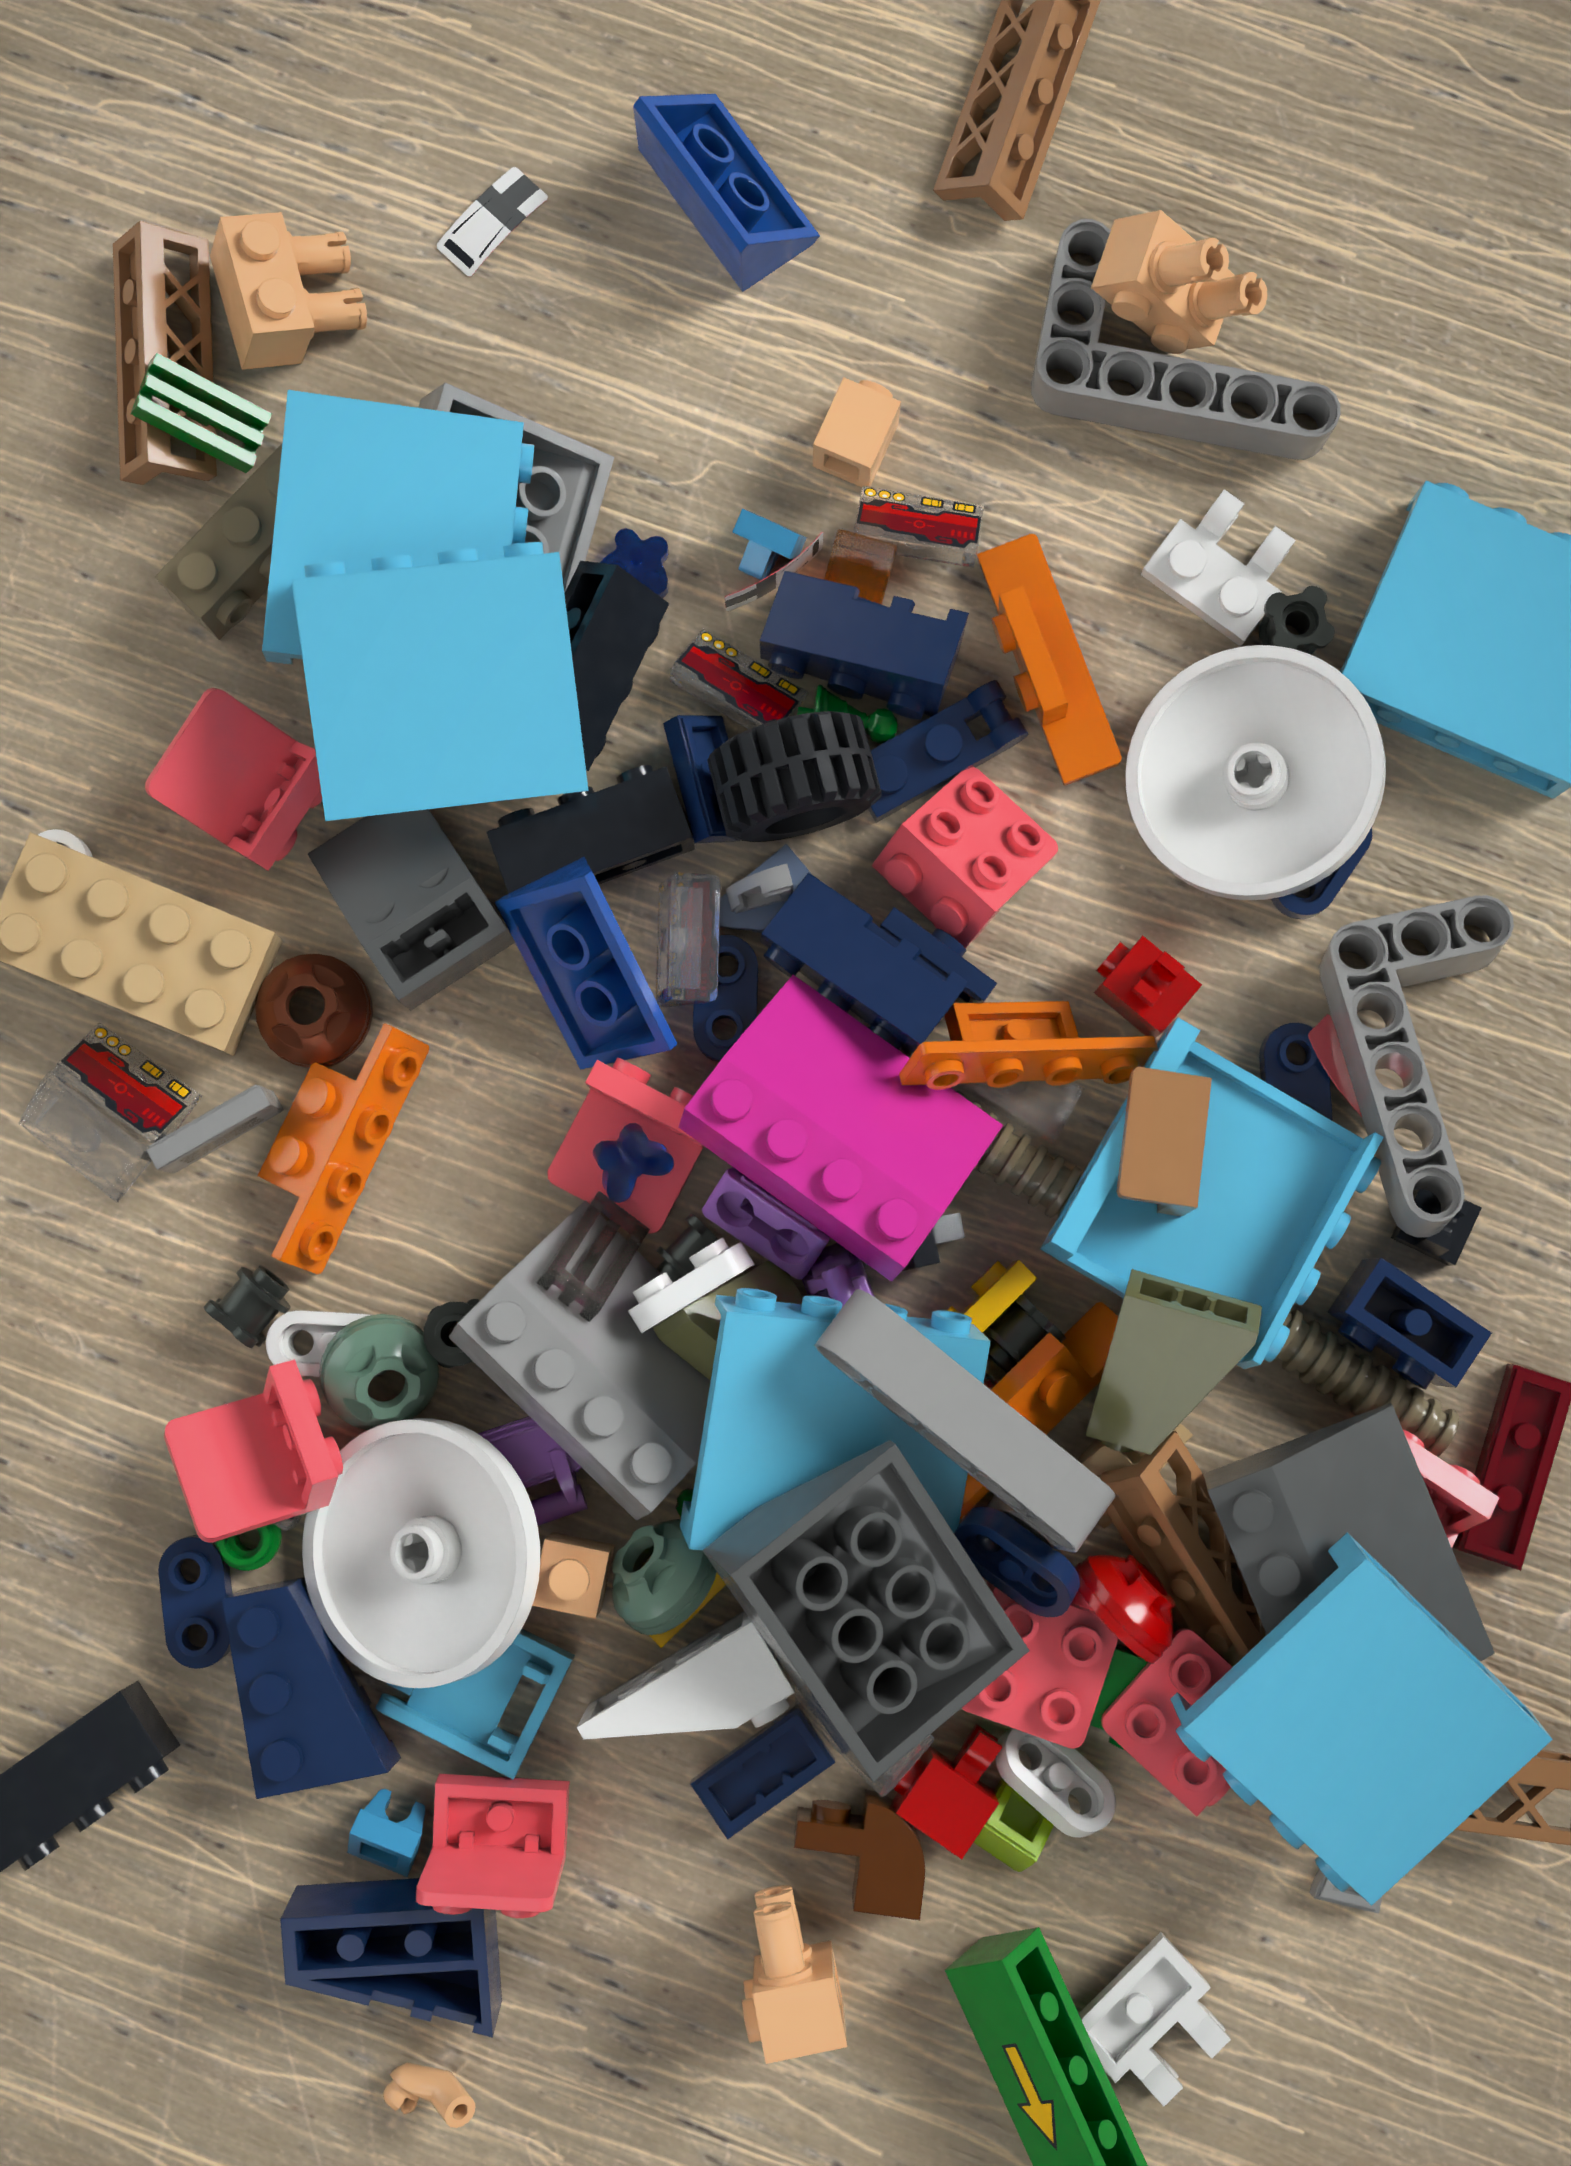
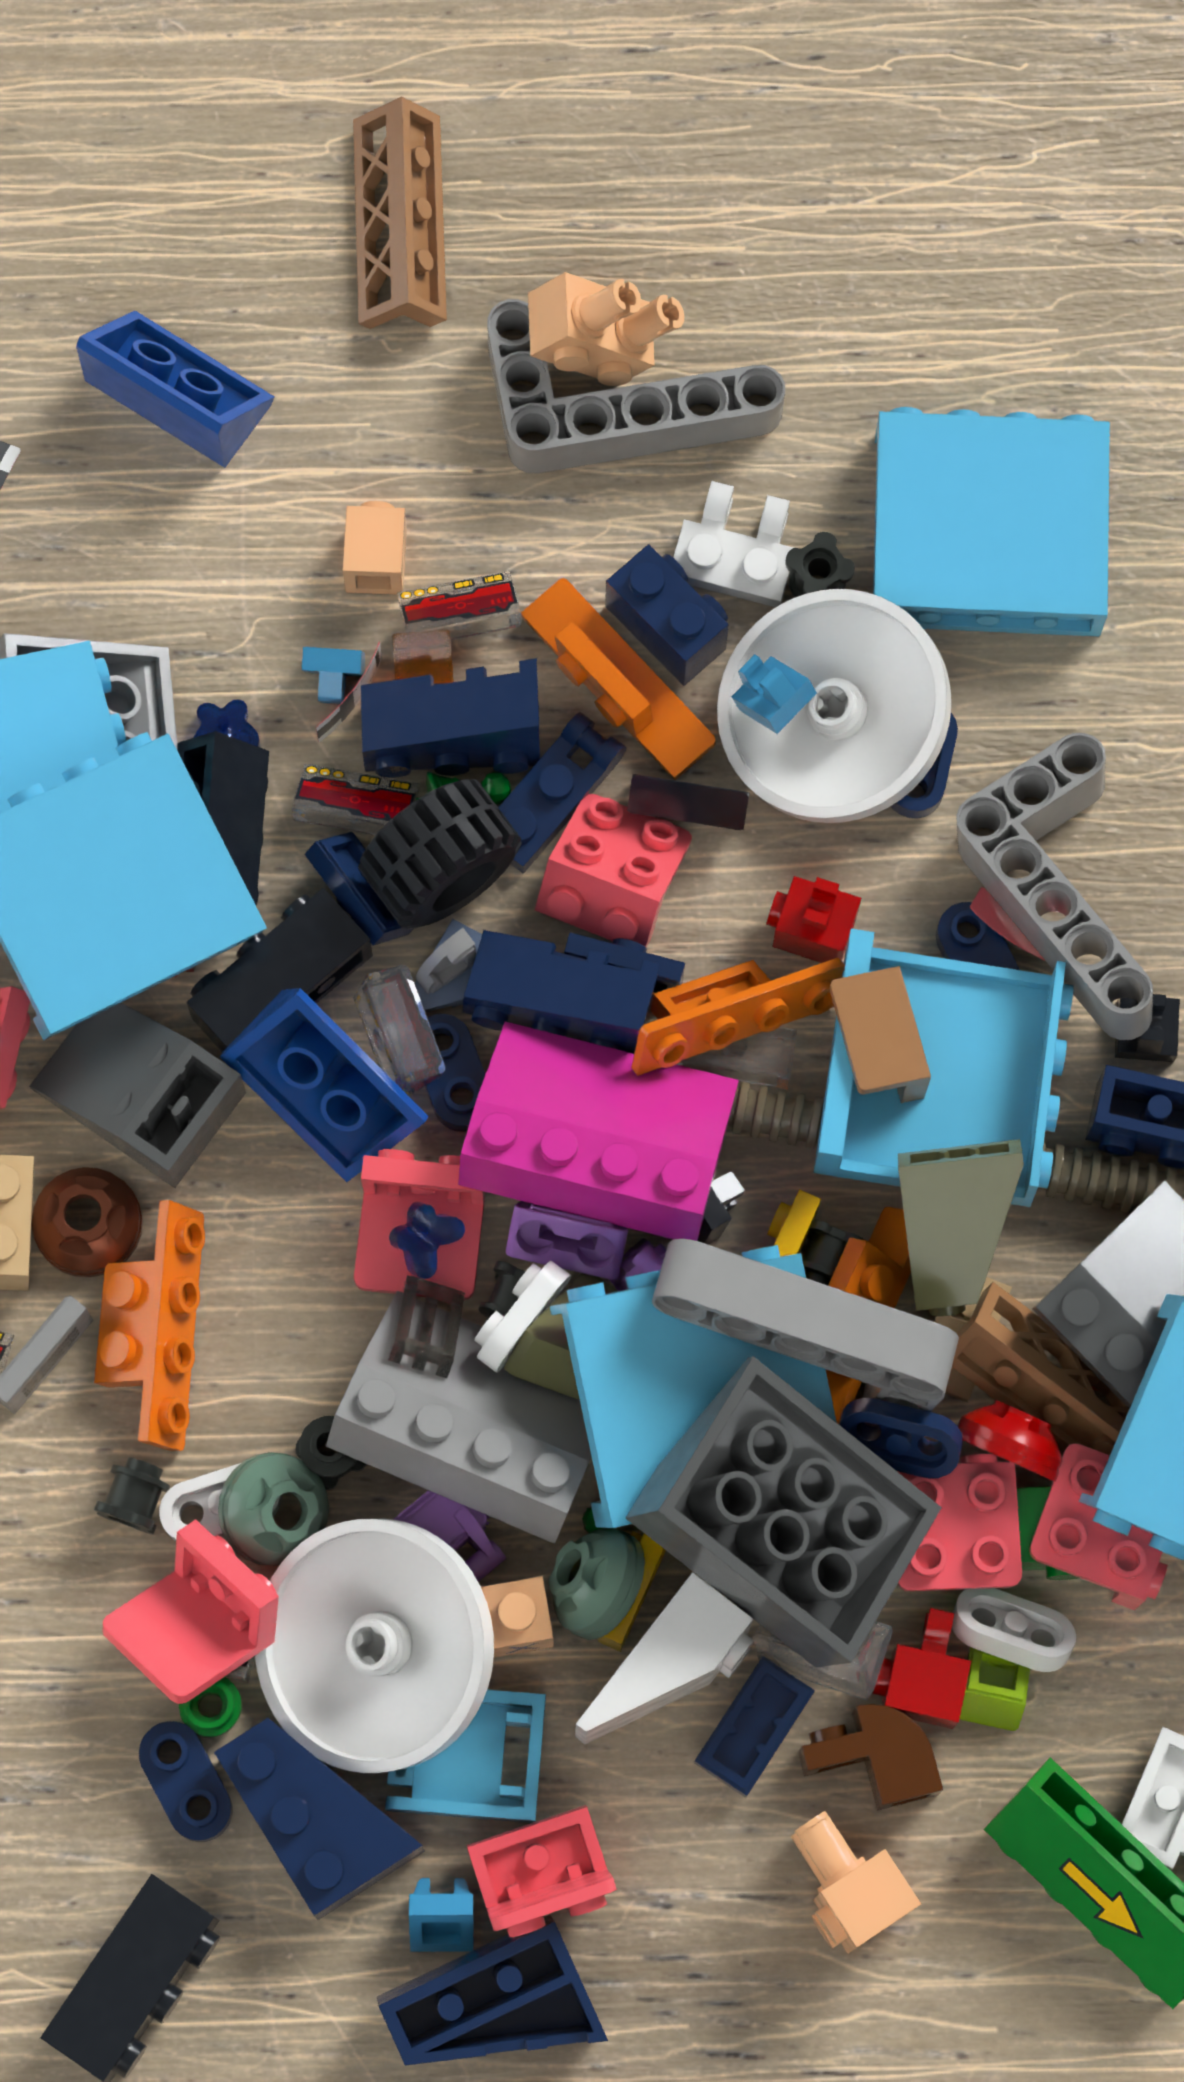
camera: 25 degrees left, 10 degrees down
(1068, 814) = (688, 802): none -> black slope
(1124, 610) = (667, 613): none -> dark blue brick
(1197, 736) = (772, 692): none -> dark azure tile

